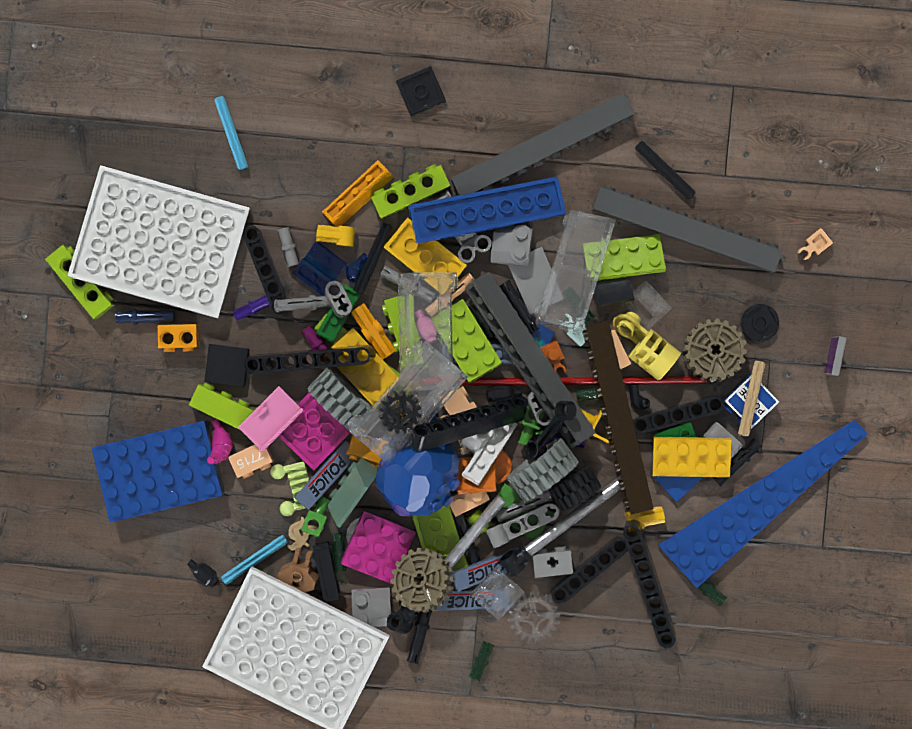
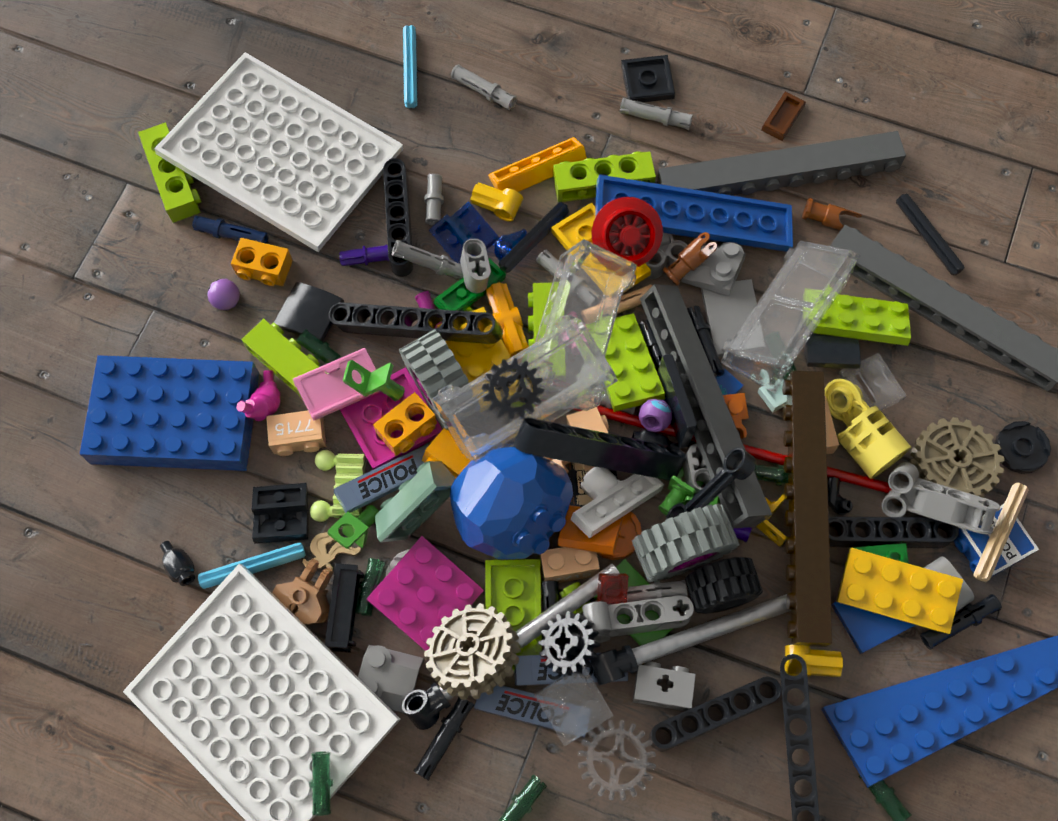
camera: 20 degrees right, 20 degrees down
(159, 369) = (223, 294): none -> medium lavender piece
(247, 393) = (317, 347): none -> clear green pin
(260, 518) = (280, 513): none -> black slope
(295, 412) = (373, 380): none -> bright green bracket
(302, 139) = (491, 91): none -> light grey pin
(323, 433) = (400, 419): none -> light orange brick
(353, 689) = (321, 783): none -> clear green pin
(435, 123) = (655, 113): none -> light grey pin
(442, 247) = (628, 229): none -> red piece
(484, 558) = (569, 656): none -> gear
(493, 251) = (690, 258): none -> dark orange piece
(499, 379) = (655, 415): none -> medium lavender piece
(502, 512) = (612, 588): none -> clear red tile
(511, 367) = (676, 397): none -> black tile
(534, 95) = (783, 116): none -> reddish brown tile
(585, 176) = (826, 214): none -> dark orange piece
(704, 389) = (937, 501): none -> light grey piece

